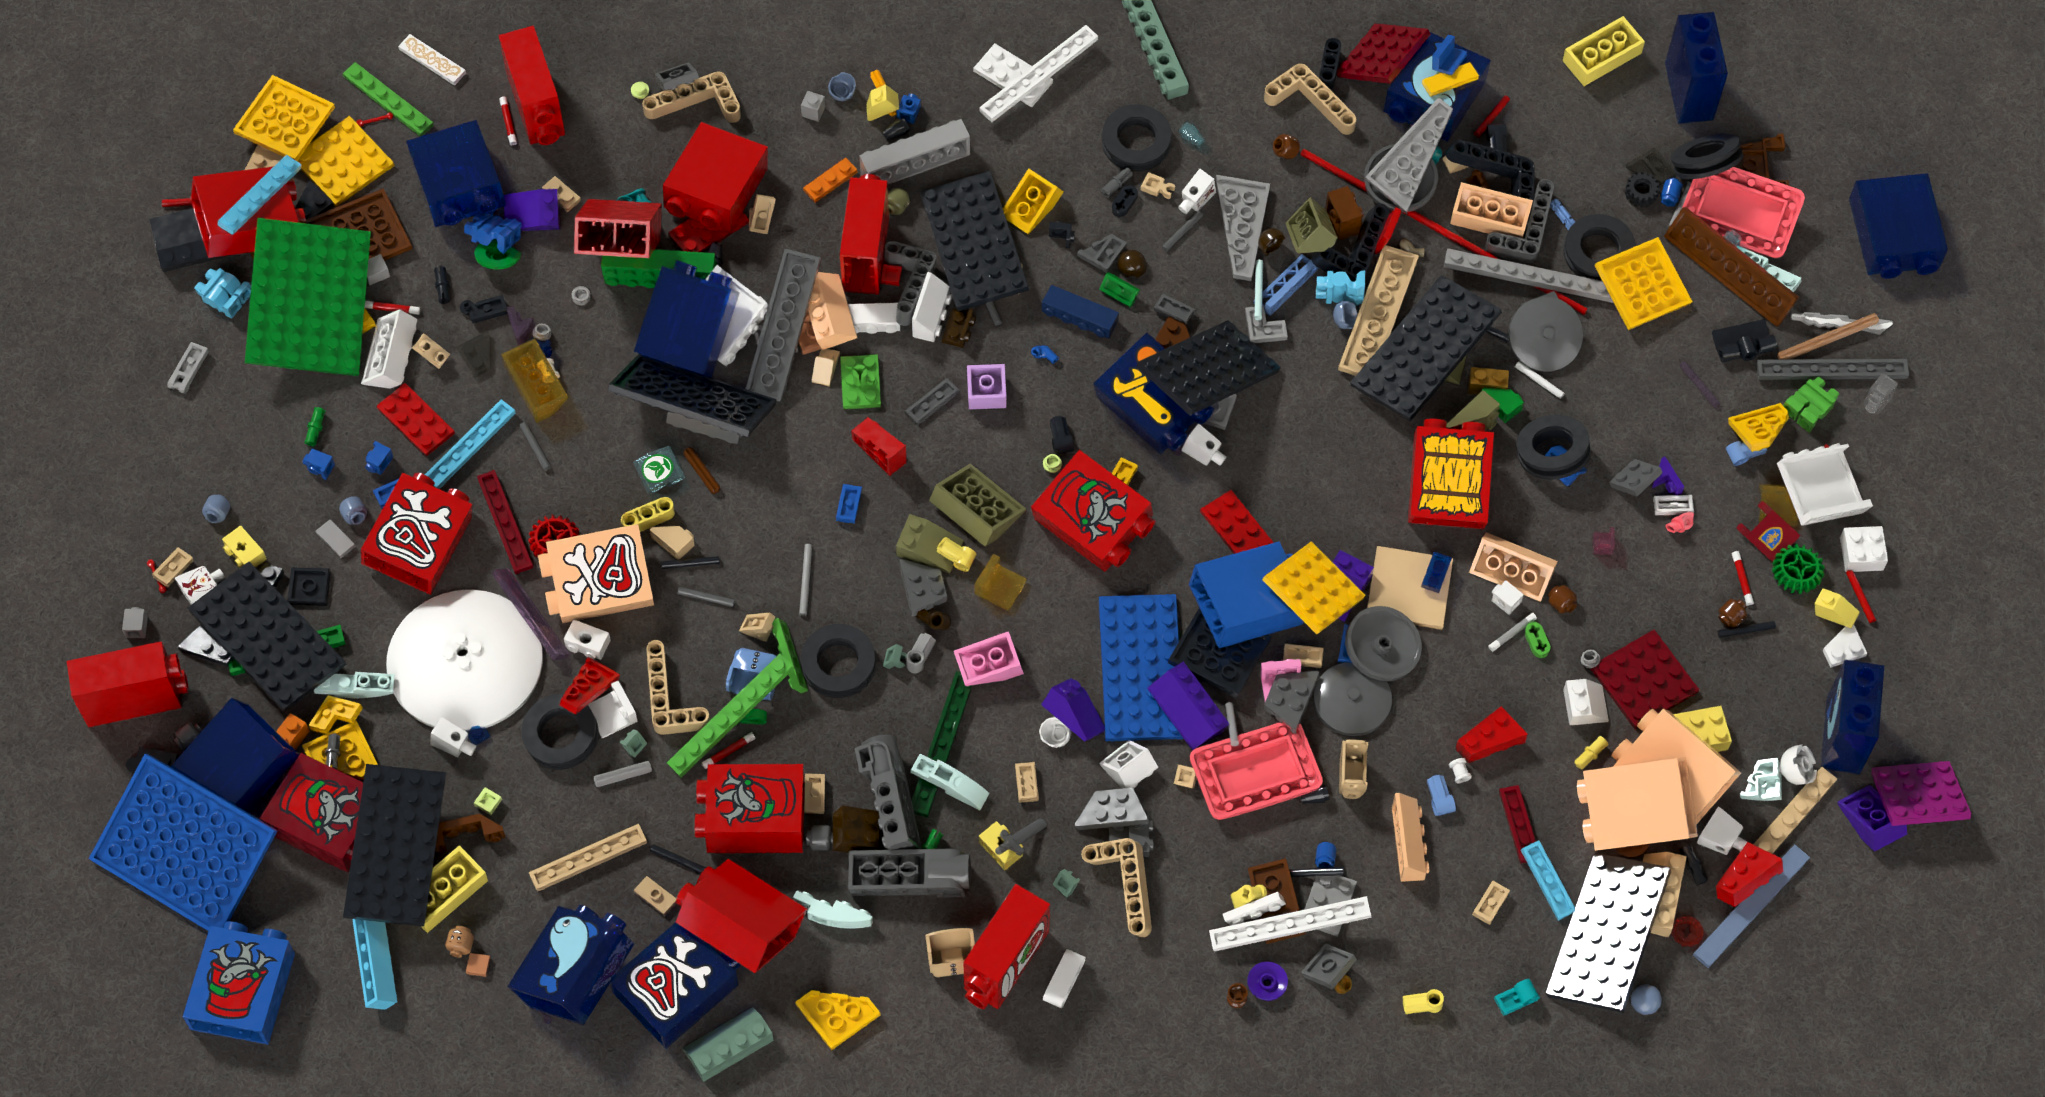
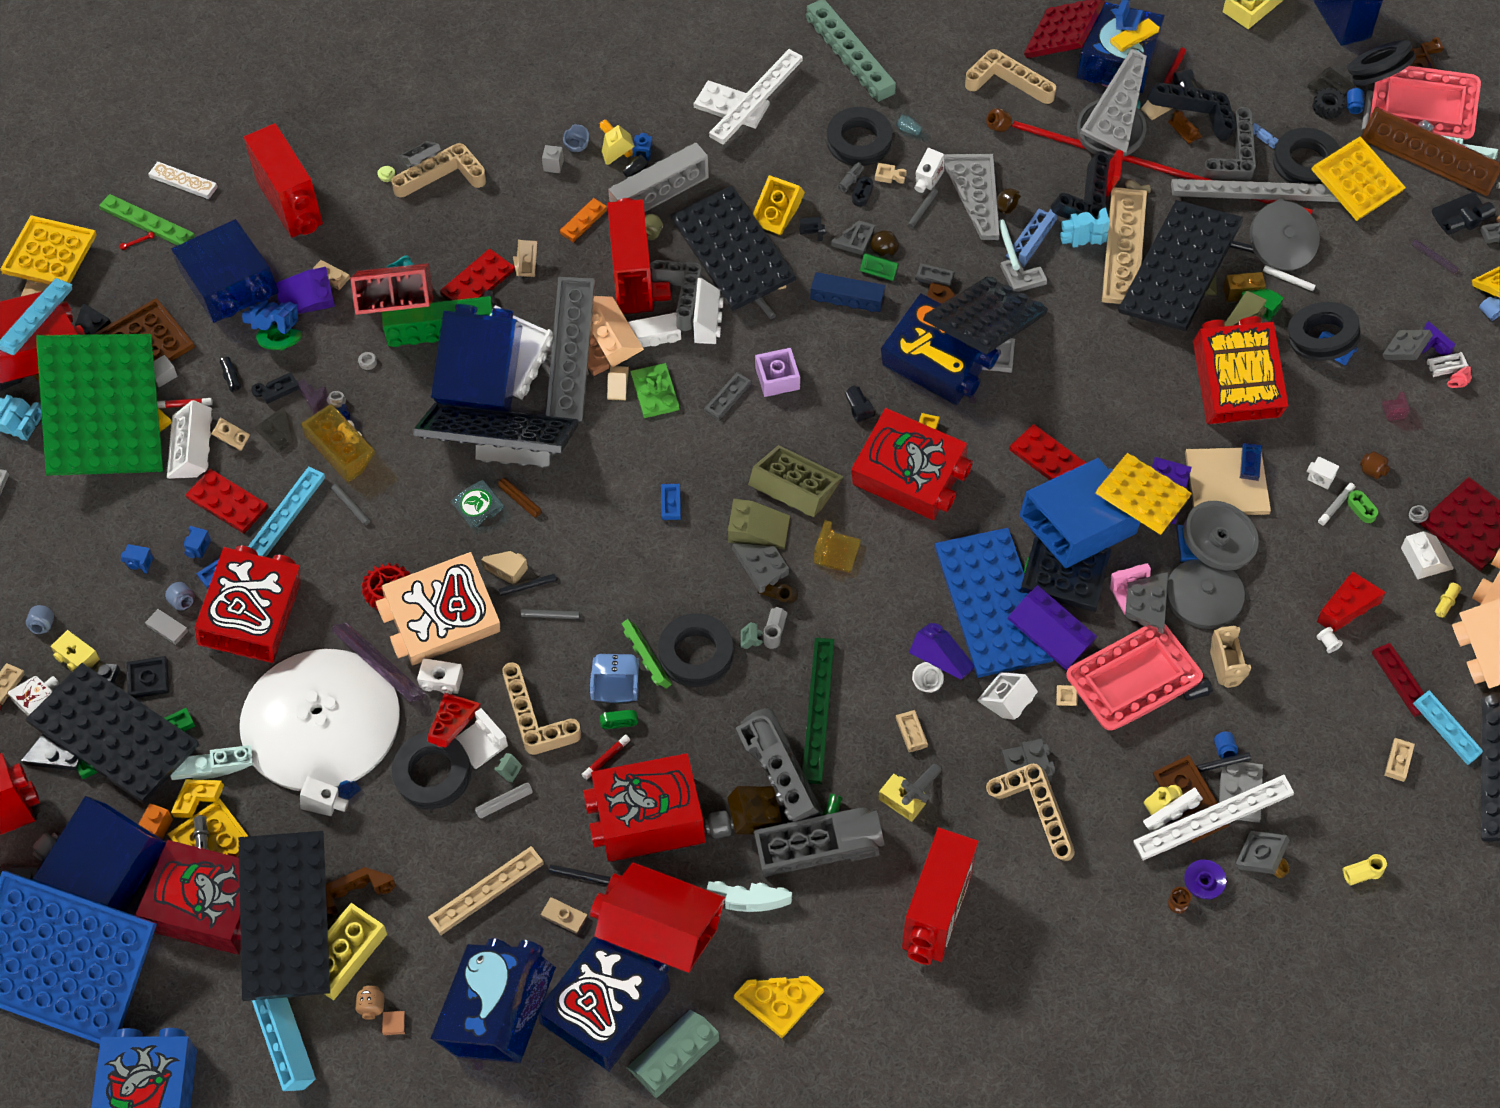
camera: 10 degrees left, 5 degrees down
(315, 426) = (127, 524): green pin -> none
(344, 161) = (114, 281): yellow plate -> none
(487, 801) = (371, 853): yellowish green plate -> none
(504, 522) = (335, 580): dark red plate -> none
(508, 122) = (265, 220): red bar -> none
(653, 508) = (481, 541): light yellow beam -> none
(715, 177) = (475, 232): red brick -> none
(730, 715) = (601, 721): bright green plate -> none
(758, 625) = (608, 631): tan slope -> none
(805, 580) = (645, 580): light grey bar -> none
(814, 793) = (704, 782): tan plate -> none
(880, 445) = (689, 443): red wedge -> none
(948, 950) = (881, 911): tan piece -> none
(951, 780) = (842, 744): light aqua slope -> none
(958, 327) = (736, 326): dark brown bracket -> none
(961, 556) = (792, 530): light yellow piece -> none
(989, 660) = (846, 621): bright pink slope -> none
(1044, 352) = (823, 333): blue arm -> none
(1052, 463) = (857, 430): yellowish green plate -> none
(1064, 978) = (1001, 917): white beam -> none
(1066, 882) = (977, 821): sand green tile -> none
(1112, 809) = (1004, 741): wing -> none
(1203, 446) = (997, 389): white torso -> none
(1232, 724) = (1100, 640): light grey bar -> none
(1308, 655) = (1155, 560): tan plate -> none
(1311, 228) = (1044, 181): olive slope -> none
(1330, 57) = (1017, 43): black beam -> none
(1344, 212) = (1068, 165): reddish brown brick -> none
(1345, 314) = (1094, 252): sand blue hair -> none
(1409, 838) = (1301, 713): light nougat slope -> none
(1441, 800) = (1320, 671): medium blue piece -> none
(1490, 211) = (1200, 141): light nougat slope -> none
(1517, 997) = (1455, 846): teal plate -> none
(1521, 567) = (1306, 441): light nougat slope -> none

